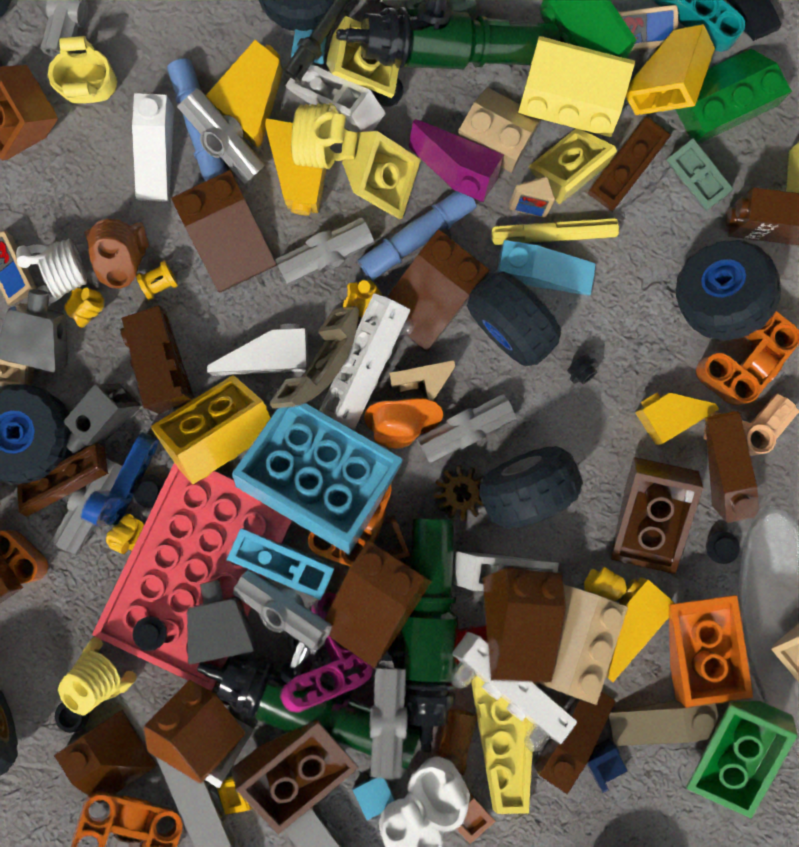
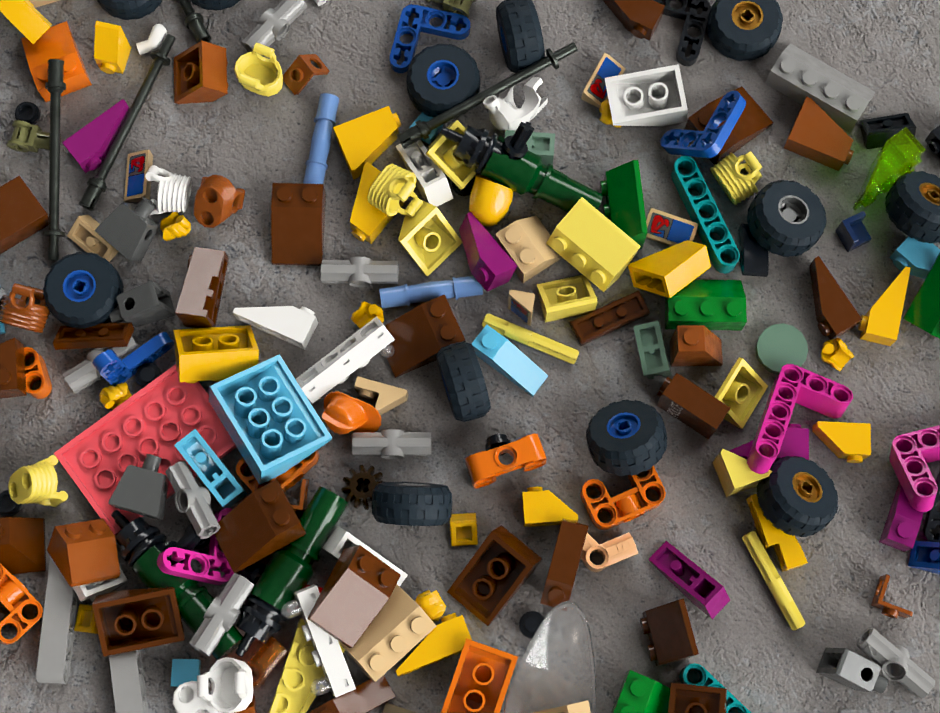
camera: 30 degrees right, 10 degrees down
(131, 50) = (302, 71): none -> dark orange bracket
(149, 633) = (93, 471): black plate -> none
(152, 146) = (281, 143): white slope -> none
(162, 271) = (233, 234): yellow bush -> none
(221, 135) = (330, 158): light grey piece -> none
(339, 336) = (337, 333): dark tan slope -> none
(429, 94) = (489, 200): none -> yellow piece
(592, 400) = (485, 465): none -> orange beam
(596, 481) = (463, 529): none -> yellow slope
(744, 150) = (695, 347): none -> dark orange slope

